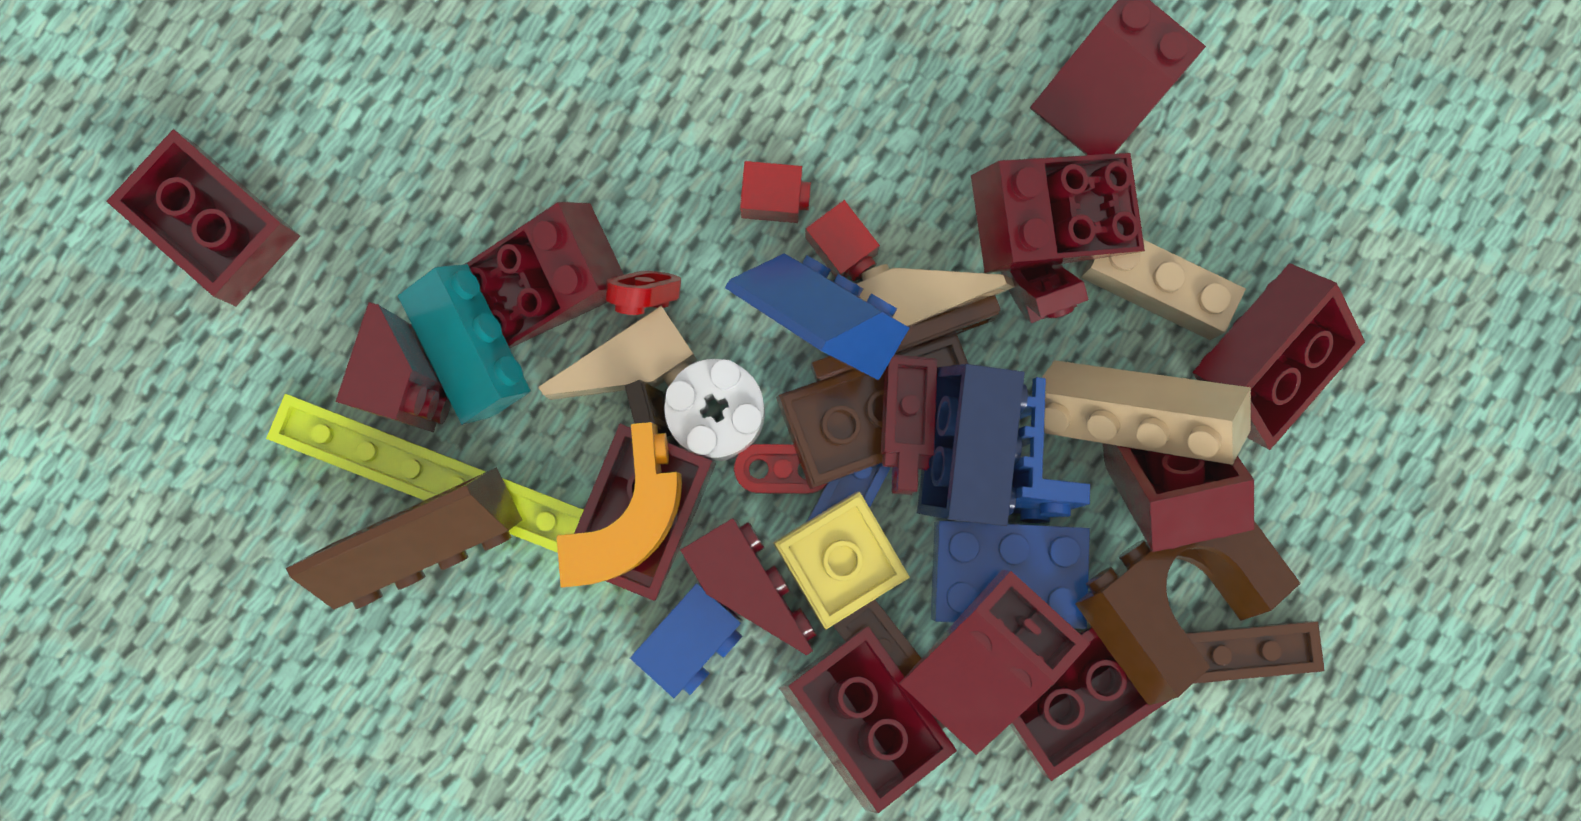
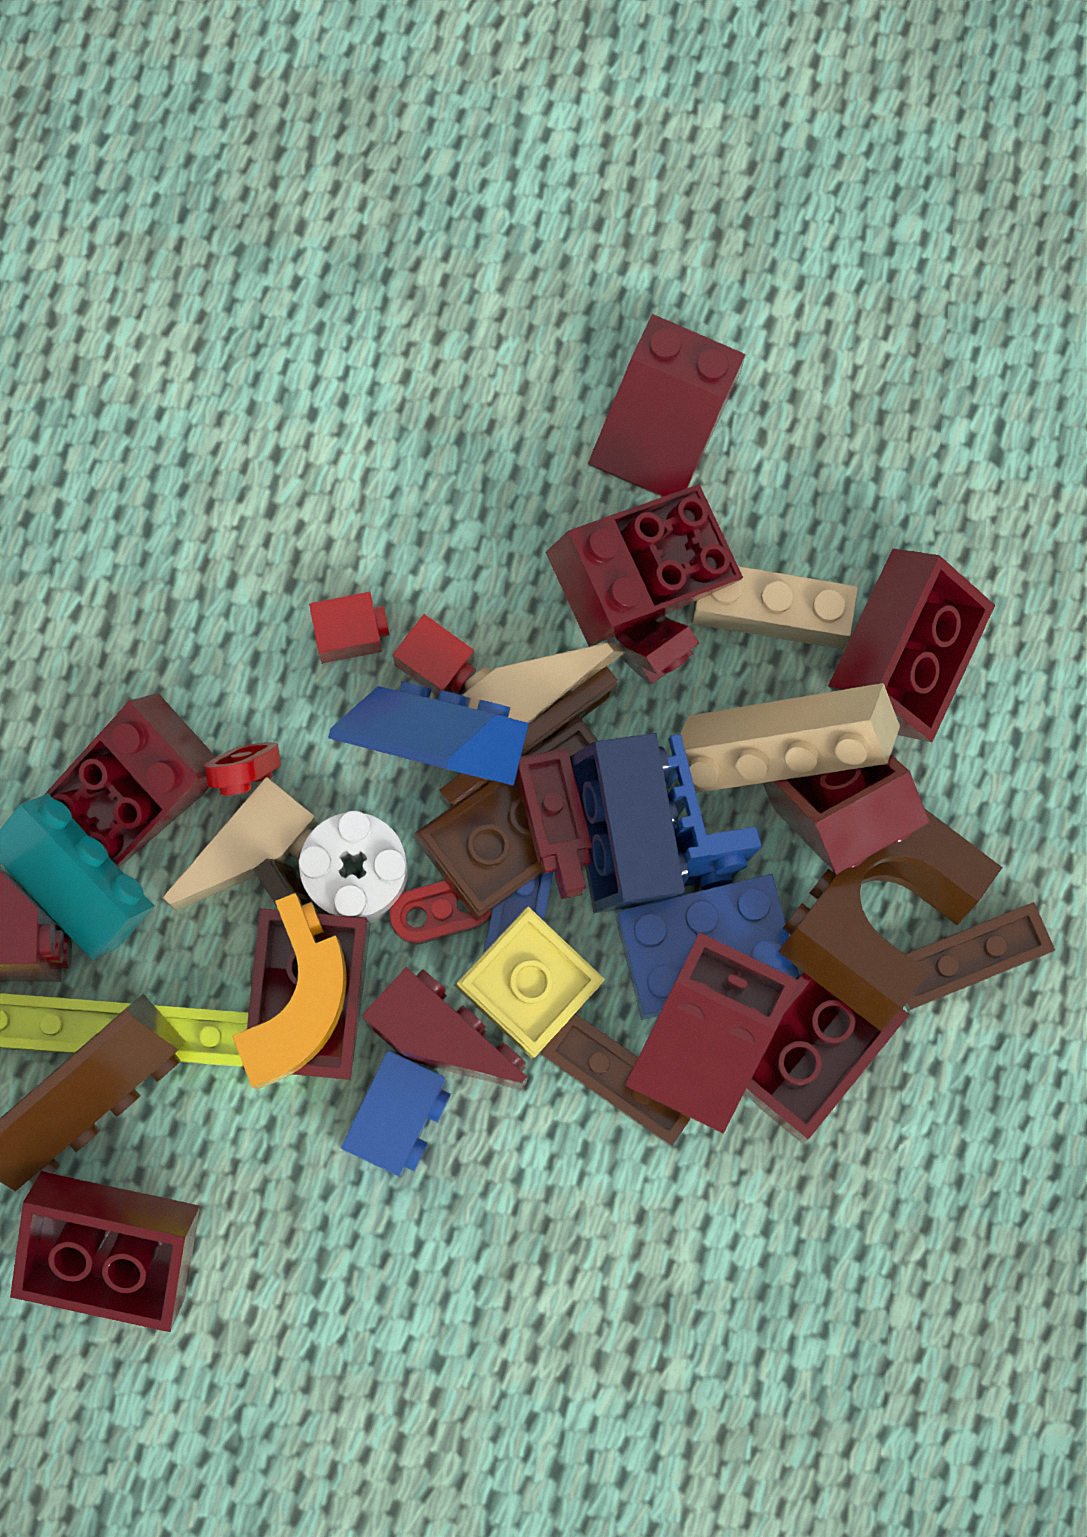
camera: 25 degrees left, 5 degrees down
(394, 687) = (104, 1251): none -> dark red brick
(867, 720) = (604, 1138): dark red slope -> none

